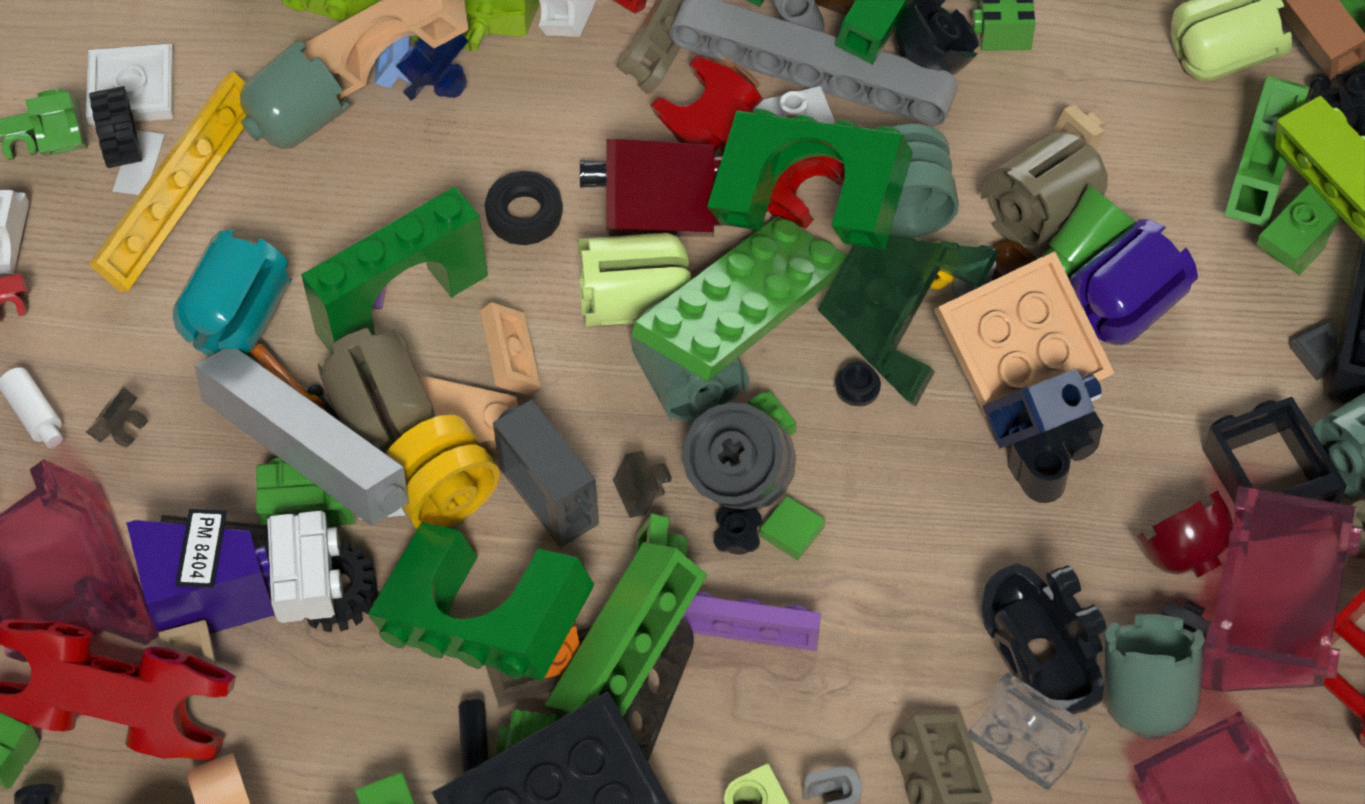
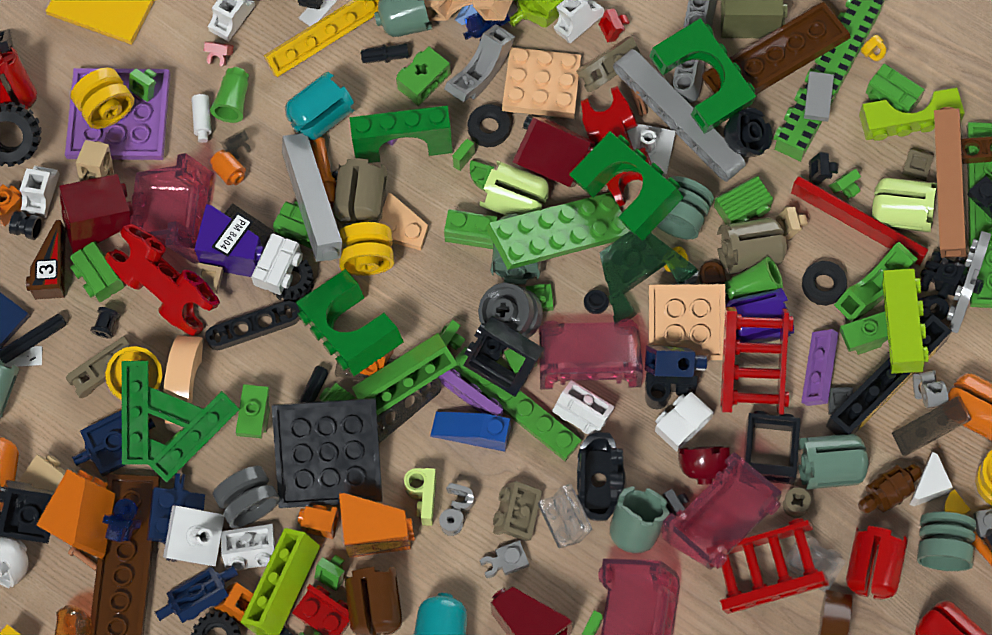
camera: 30 degrees right, 10 degrees up
(67, 352) = (231, 96): none -> bright green plant
(123, 462) = (228, 167): none -> orange brick
(291, 177) = (384, 53): none -> black axle
(303, 688) = (254, 329): none -> black beam
(373, 180) = (423, 75): none -> bright green brick
(464, 118) = (483, 66): none -> light grey arch
(510, 265) = (463, 154): none -> bright green tile
(510, 349) = (438, 199): light nougat plate -> none
(546, 472) = (415, 273): dark grey window -> none
(553, 284) = (479, 173): none -> bright green tile
(570, 109) = (541, 83): none -> light nougat plate
(592, 367) = (468, 229): none -> bright green brick
(640, 483) = (460, 300): clear smoke tile -> none
(766, 564) = (494, 371): none -> black window
(786, 673) = (472, 429): none -> blue slope
(841, 601) = (525, 413): none -> bright green plate
(900, 462) = (590, 352): none -> clear pink windscreen
(947, 550) = (583, 408): none -> white brick
(992, 135) = (744, 202): none -> bright green brick
(1071, 40) = (821, 168): none -> black tile
(1113, 493) = (683, 421): none -> white brick
(1123, 44) = (847, 184): none -> bright green tile
(1126, 337) = (733, 372): none -> red fence
(1160, 84) = (855, 218): none -> red tile
(1190, 174) = (824, 297): none -> black tyre
(1263, 315) = (819, 367): none -> medium lavender plate

